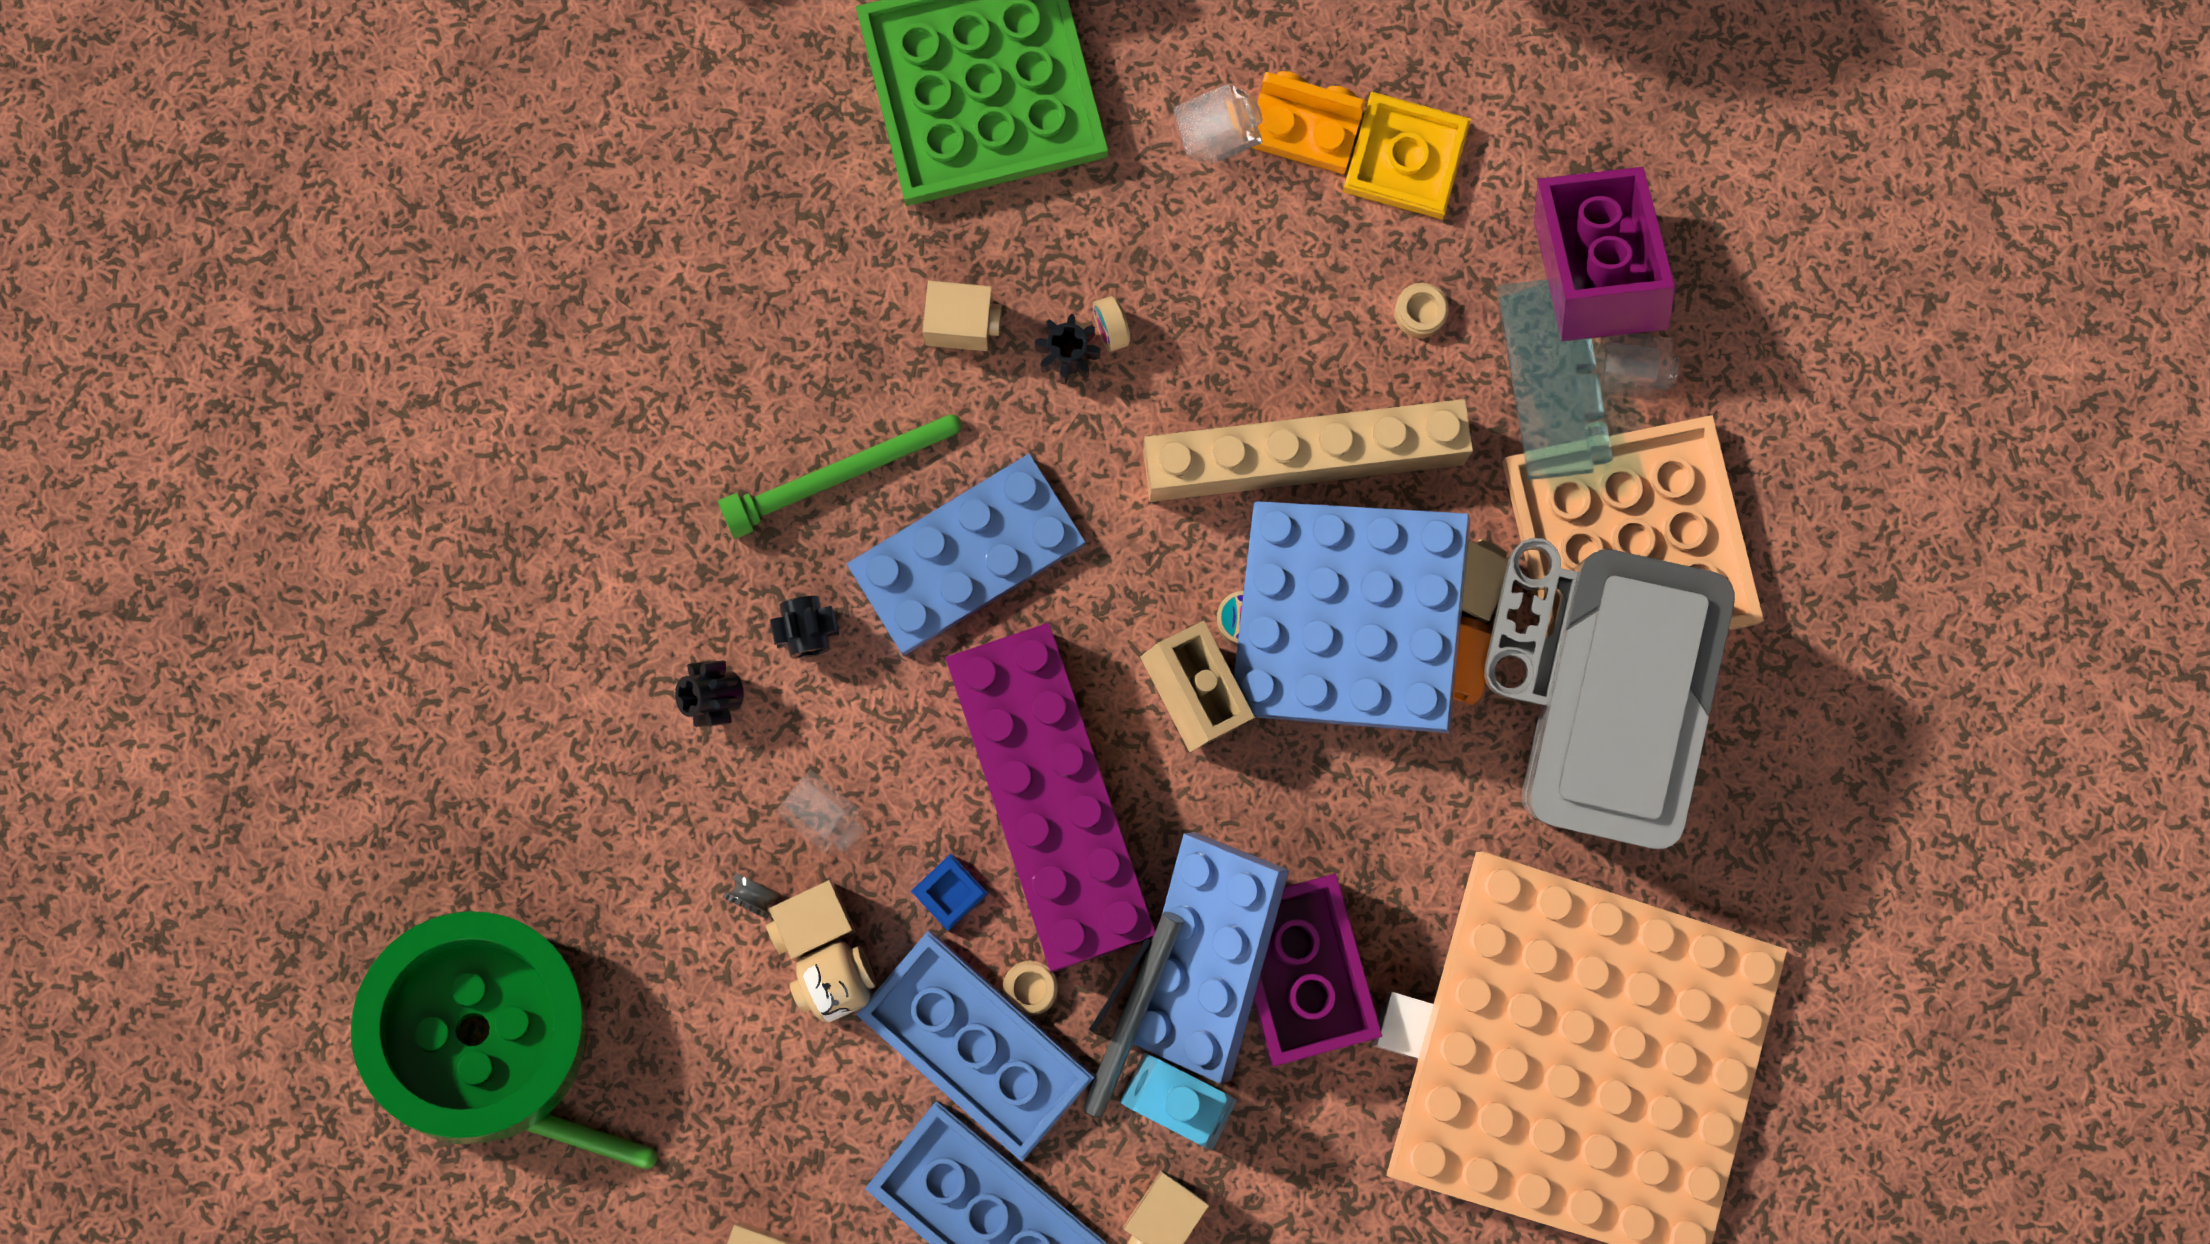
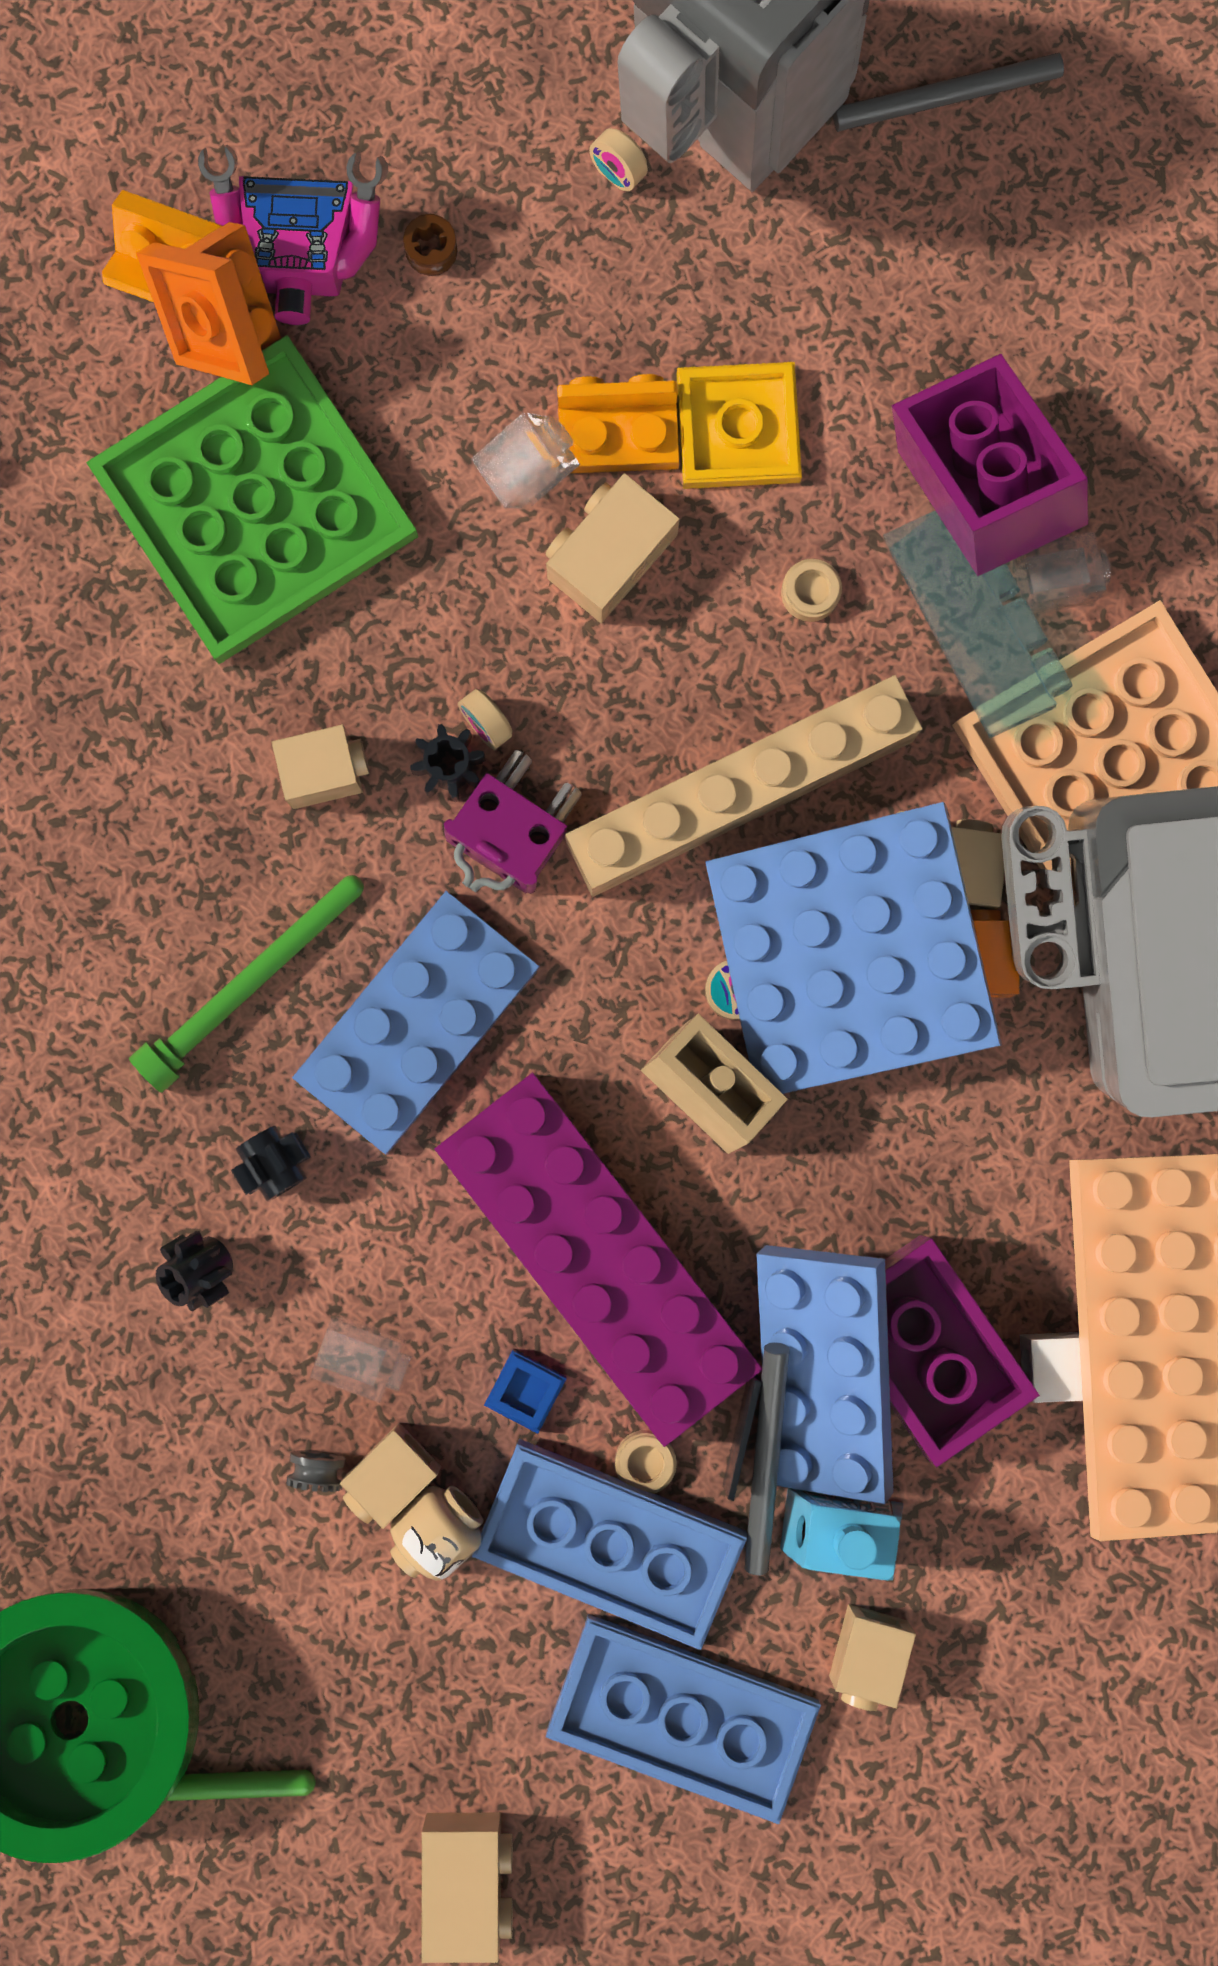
camera: 20 degrees left, 5 degrees up
(1091, 424) = (502, 836): none -> magenta piece
(1264, 218) = (610, 546): none -> tan brick

